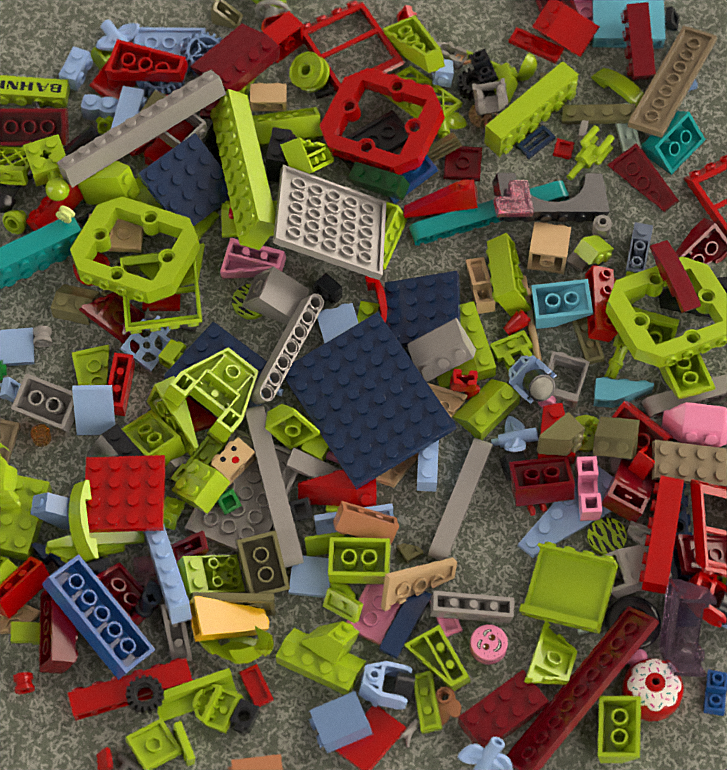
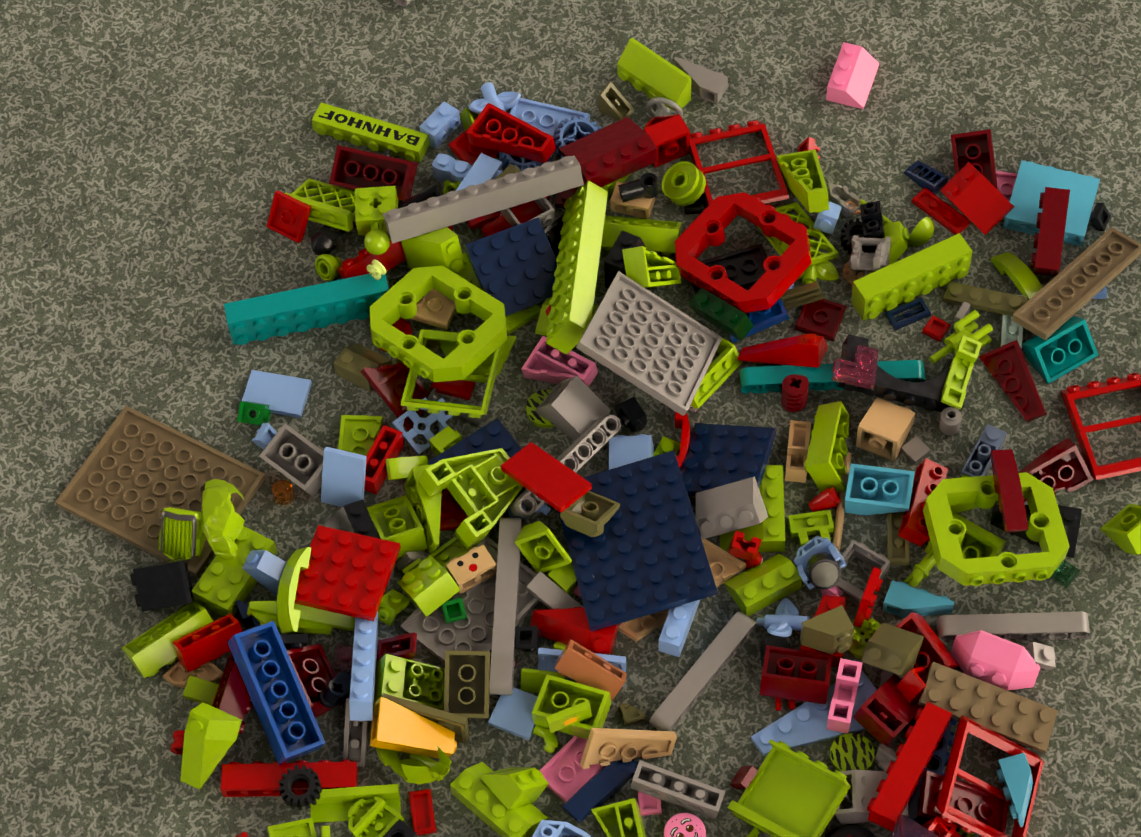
camera: 20 degrees right, 5 degrees down
(42, 336) = (317, 391): light grey wheel -> none
(49, 677) = (206, 741): none -> lime wedge
(143, 386) = (400, 467): none -> lime slope
(273, 86) = (640, 188): none -> black piece
(276, 363) = (546, 477): none -> red tile
(323, 385) = (589, 514): none -> olive slope
(343, 605) = (540, 750): lime plate -> none
(363, 569) = (569, 716): none -> lime tile
(463, 235) = (794, 393): none -> dark red piece
(522, 14) = (941, 179): none -> dark blue slope
(523, 580) = (743, 777): none -> dark red tile
(583, 397) = (868, 598): none -> red plate
(594, 250) = (932, 443): lime brick -> none
(598, 183) = (960, 371): none -> lime slope
(688, 377) = (994, 604): lime slope -> none

